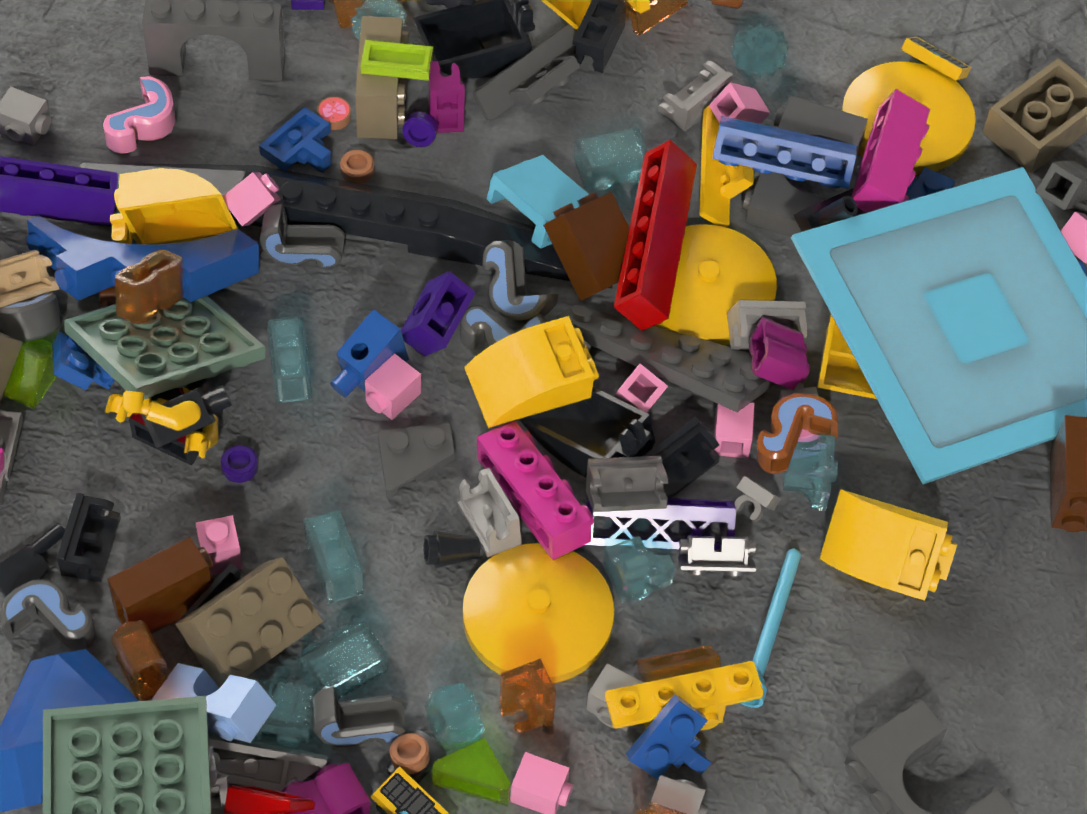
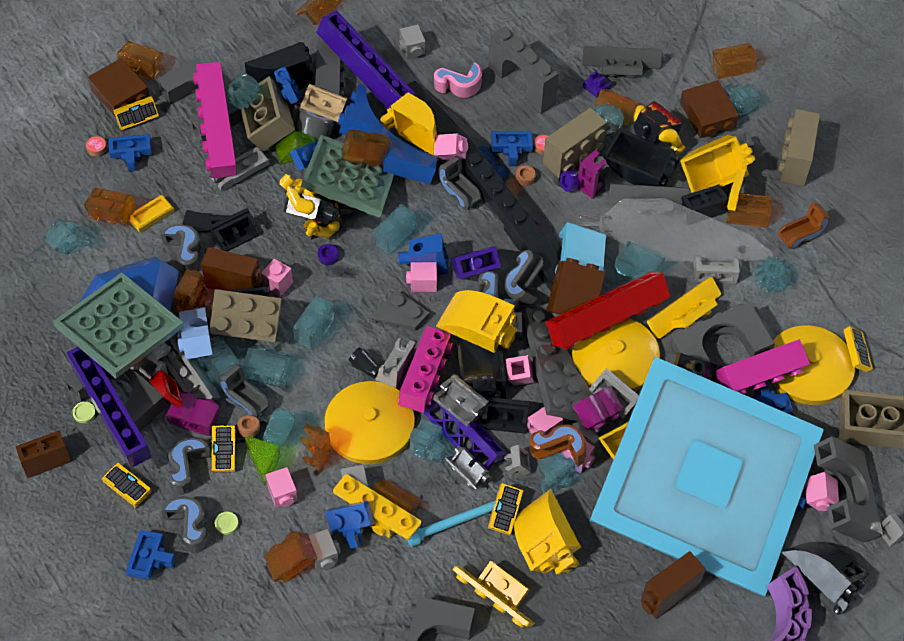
camera: 50 degrees right, 0 degrees up
(396, 60) = (580, 137): lime tile -> none
(607, 89) = (675, 232): none -> clear wing
(740, 103) = (725, 290): bright pink brick -> none
(784, 152) = (708, 322): blue brick -> none
(809, 563) = (505, 509): none -> tile
(910, 652) = (500, 588): none -> yellow bracket

